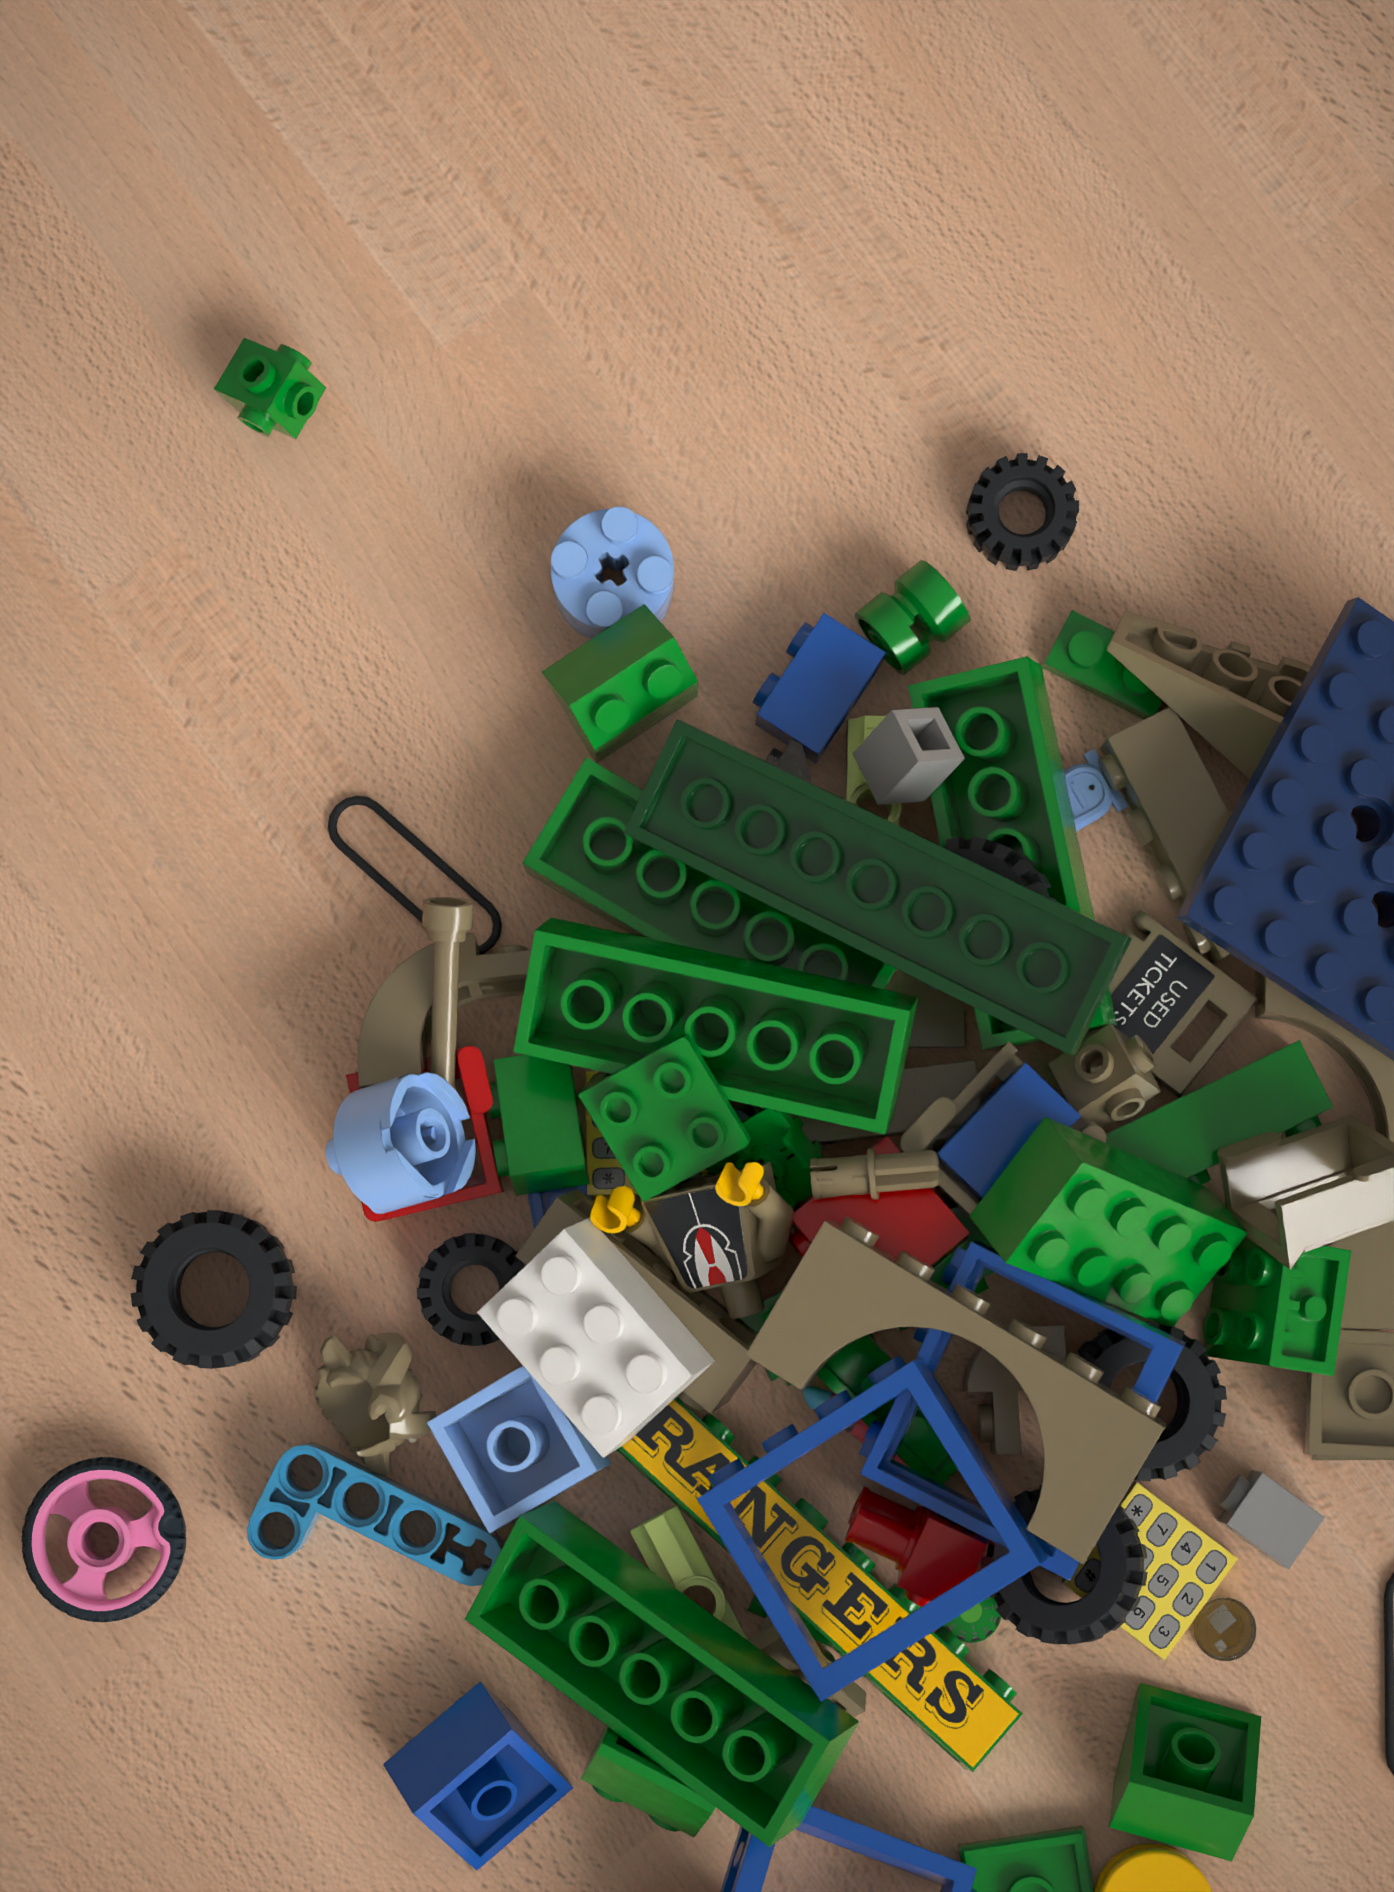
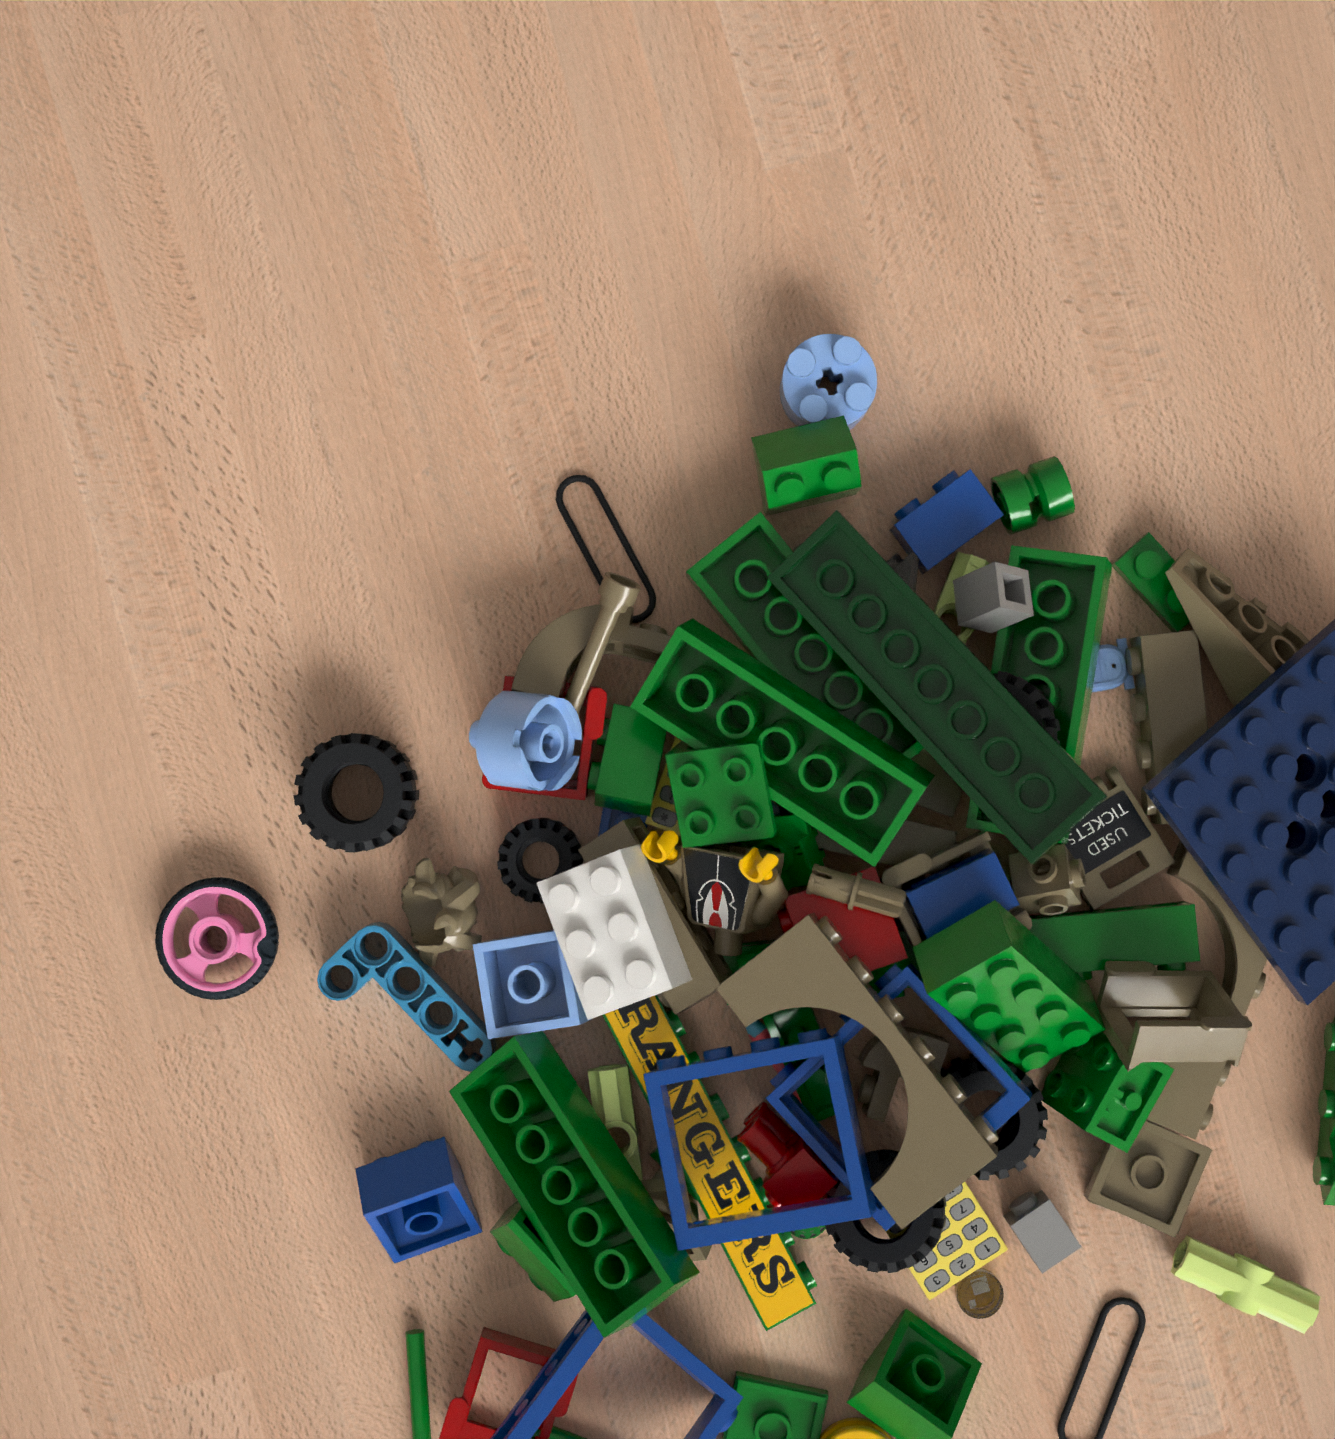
camera: 25 degrees right, 5 degrees up
(281, 395) = (631, 156): green brick -> none
(1022, 476) = (1168, 447): black tyre -> none

